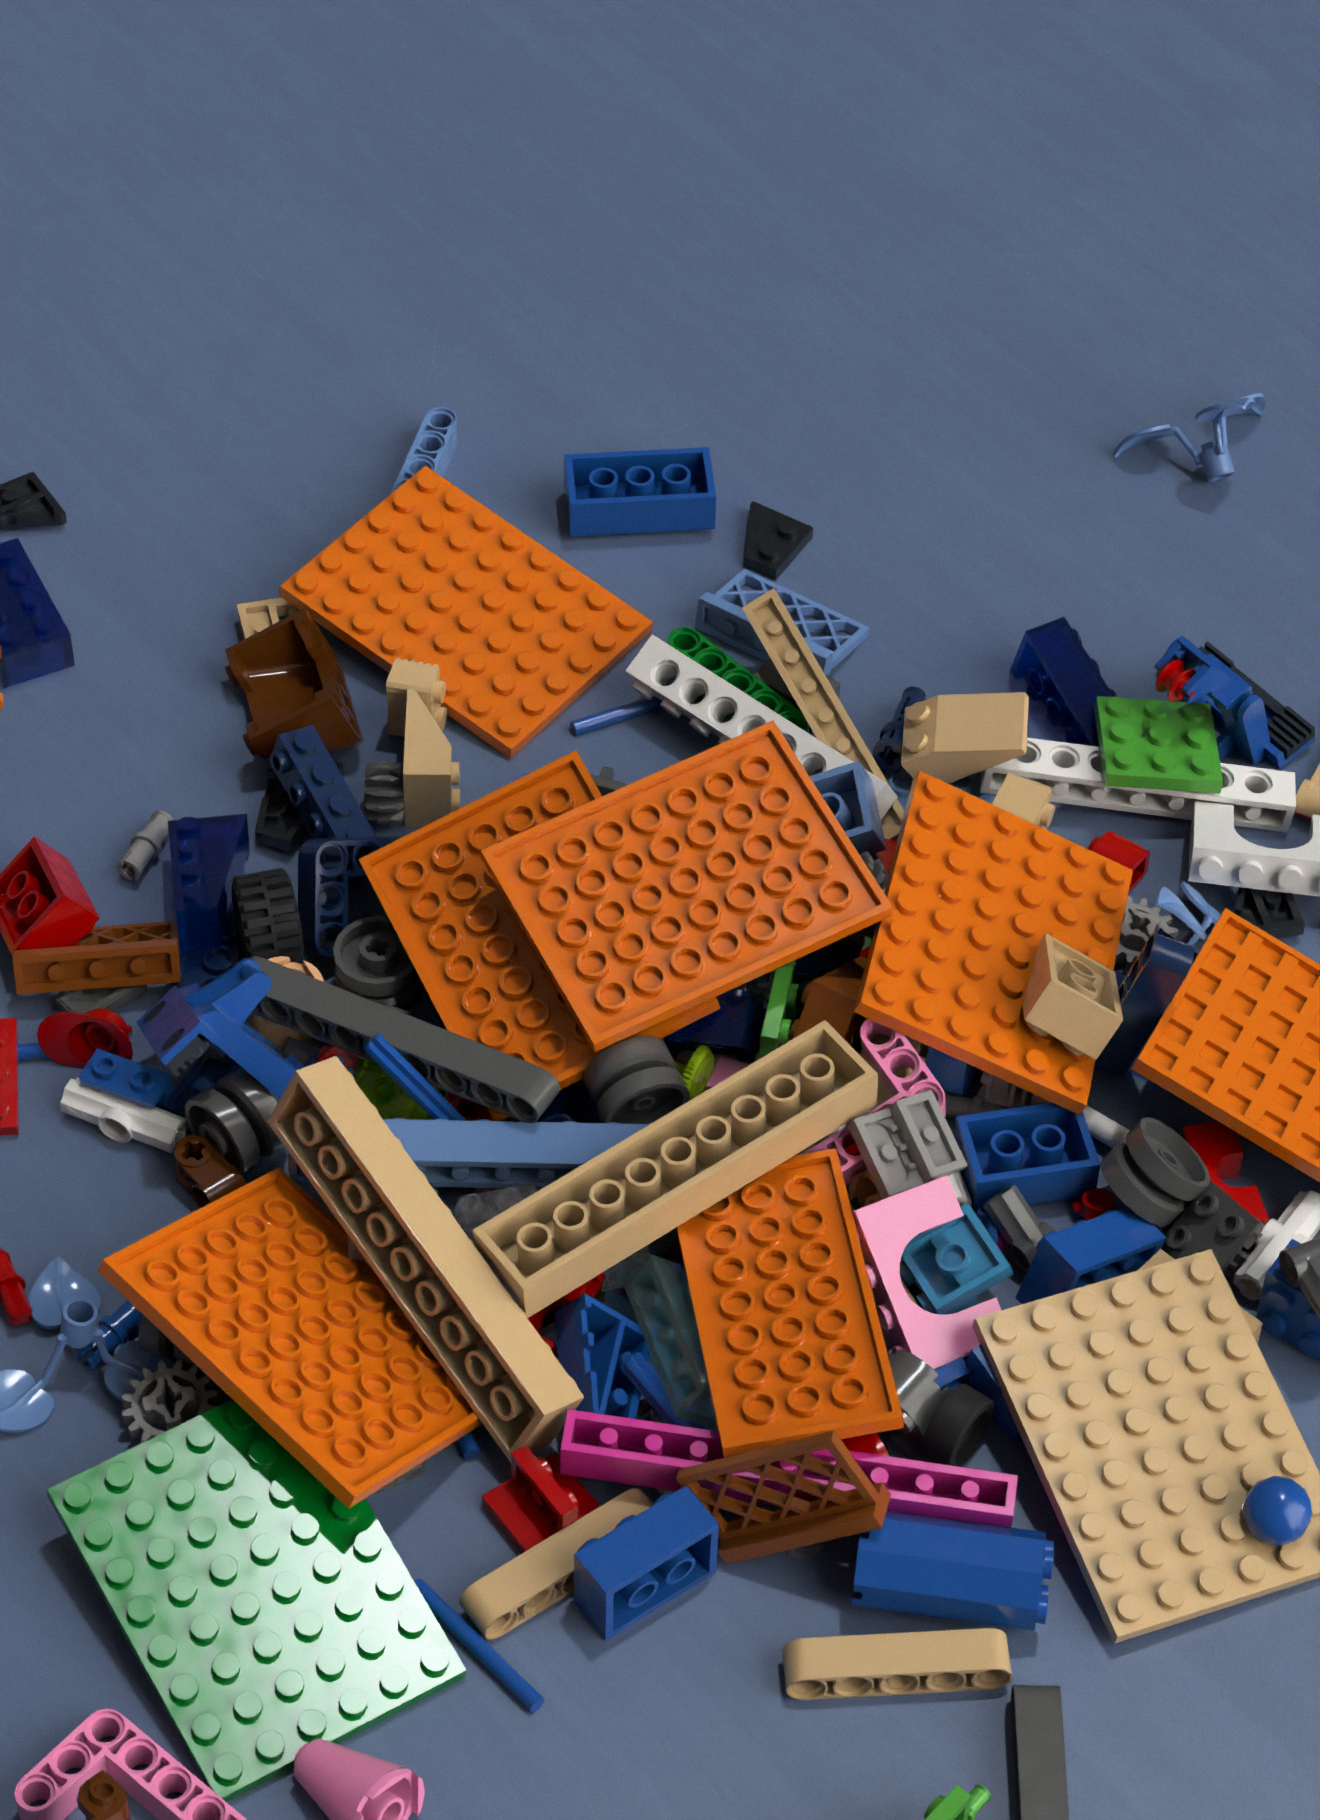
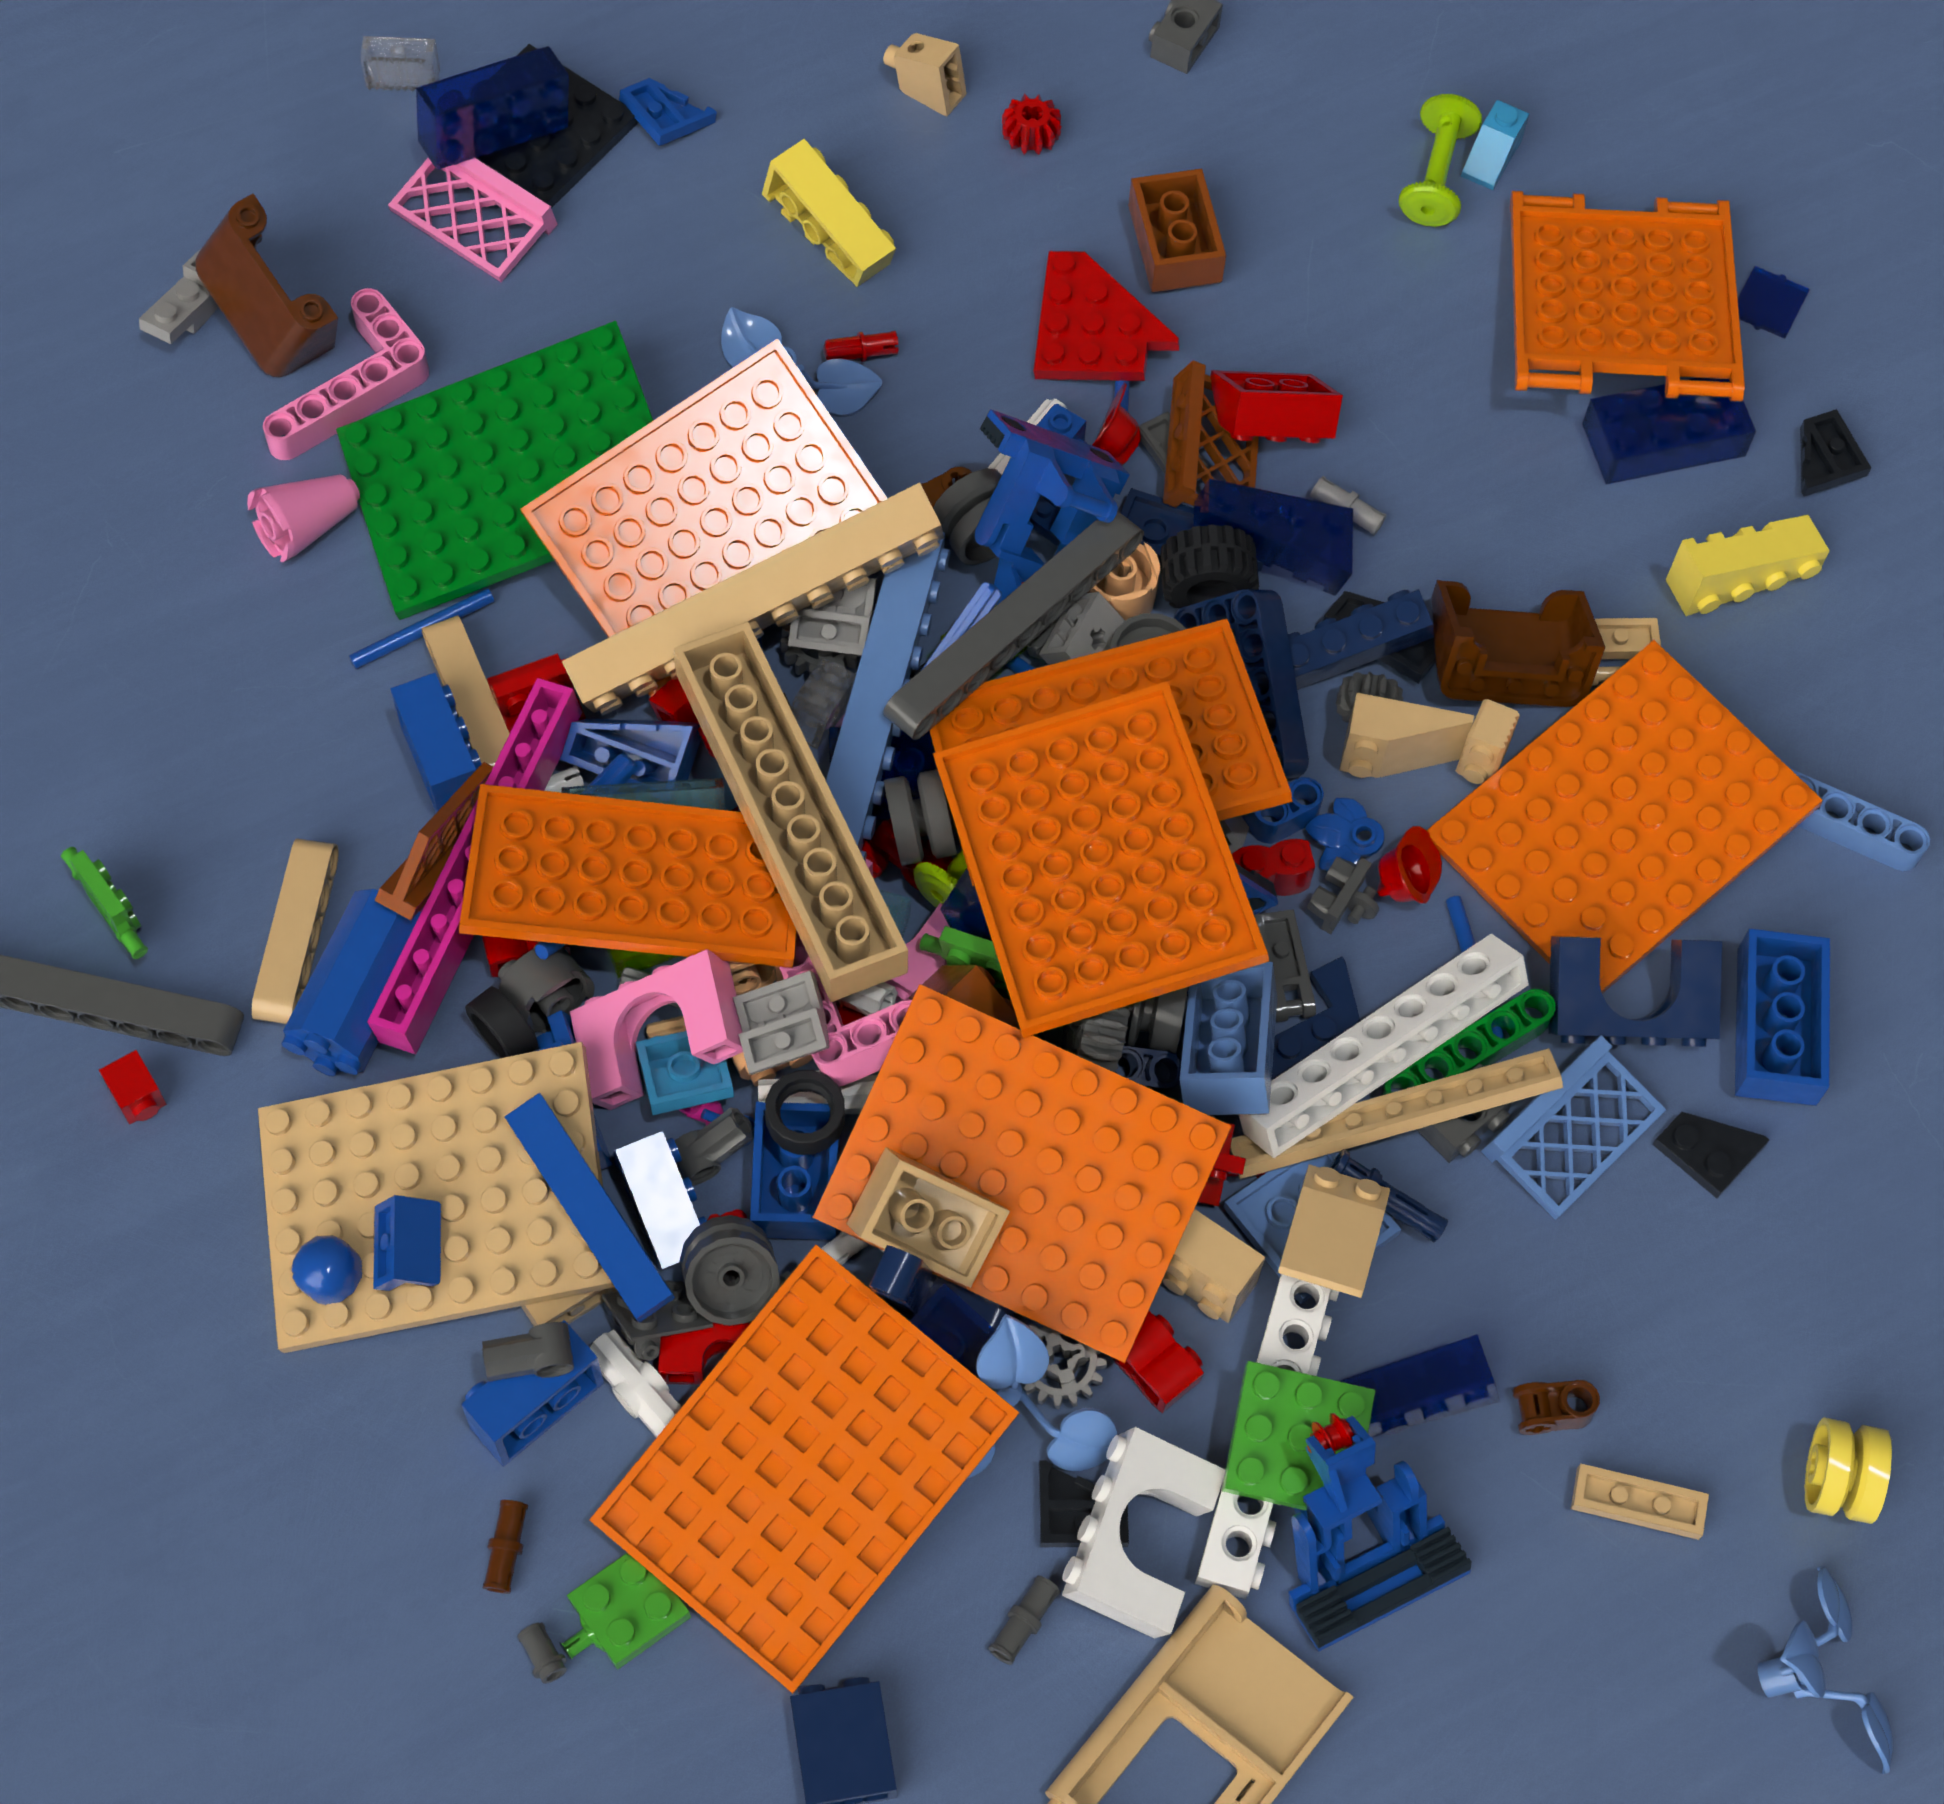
camera: 100 degrees right, 15 degrees up
(164, 548) = (1744, 564): none -> light yellow wedge
(551, 751) = (1410, 868): none -> red piece
(656, 555) = (1687, 1012): none -> dark blue arch
(989, 1104) = (805, 1082): none -> black tyre
(1041, 425) = (1848, 1470): none -> light yellow wheel
(1044, 601) = (1546, 1406): none -> reddish brown piece
(1106, 556) = (1639, 1501): none -> tan plate
(1132, 1770) = (133, 1087): none -> red brick
(1148, 1270) = (590, 1208): none -> blue tile
(1235, 1436) = (407, 1242): none -> blue panel

